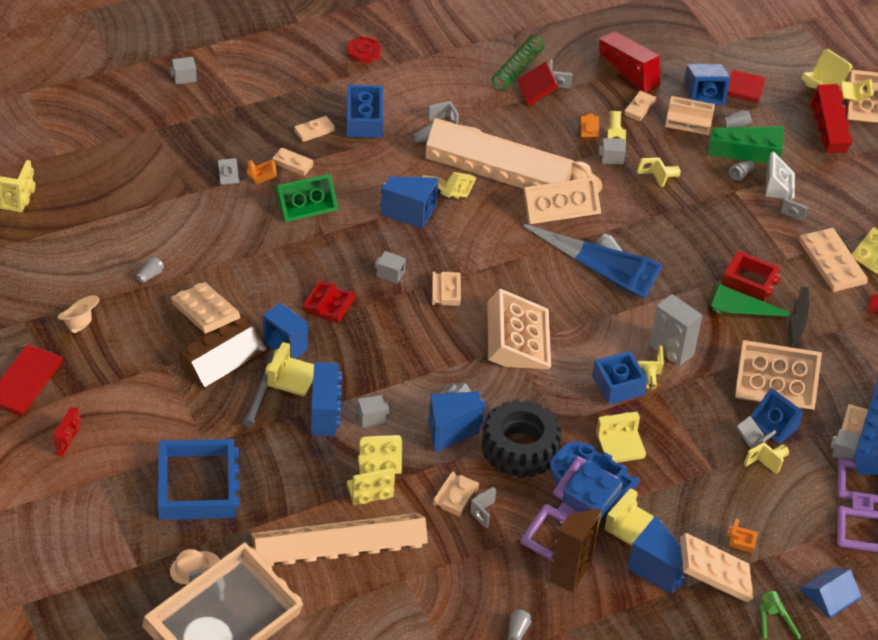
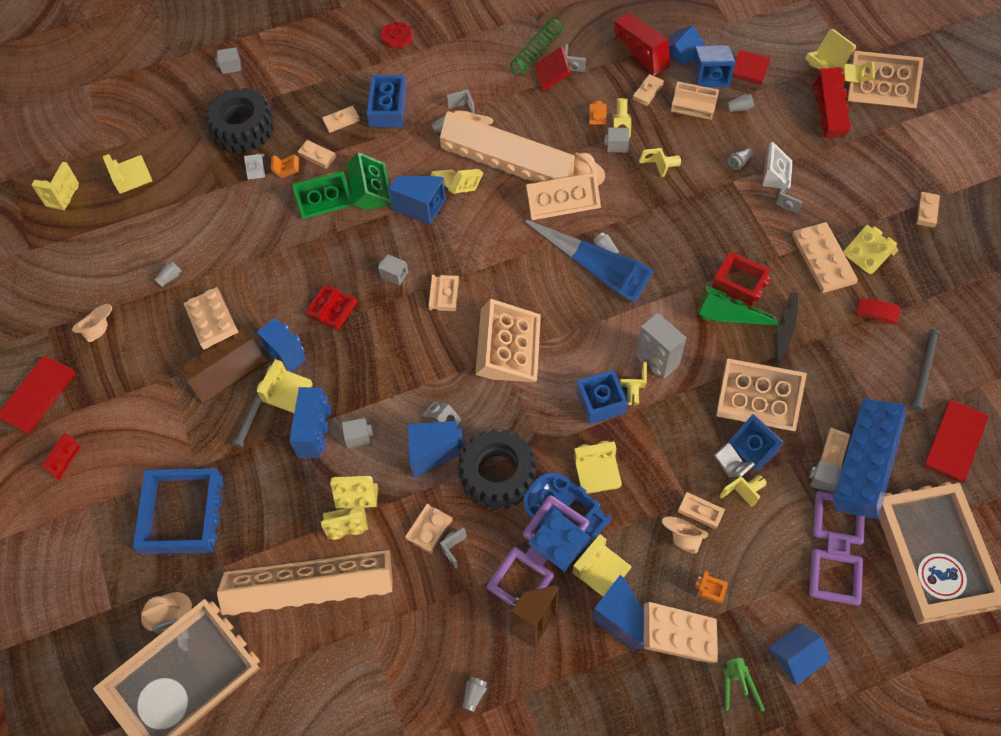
camera: 10 degrees right, 15 degrees up
(89, 177) = (128, 173): none -> light yellow bracket
(207, 142) = (234, 105): none -> black tyre
(353, 187) = (368, 182): none -> green slope
(674, 63) = (683, 44): none -> blue slope
(713, 497) = (685, 534): none -> light nougat piece
(727, 475) = (701, 510): none -> light nougat plate
(746, 143) = (748, 130): green wedge -> none

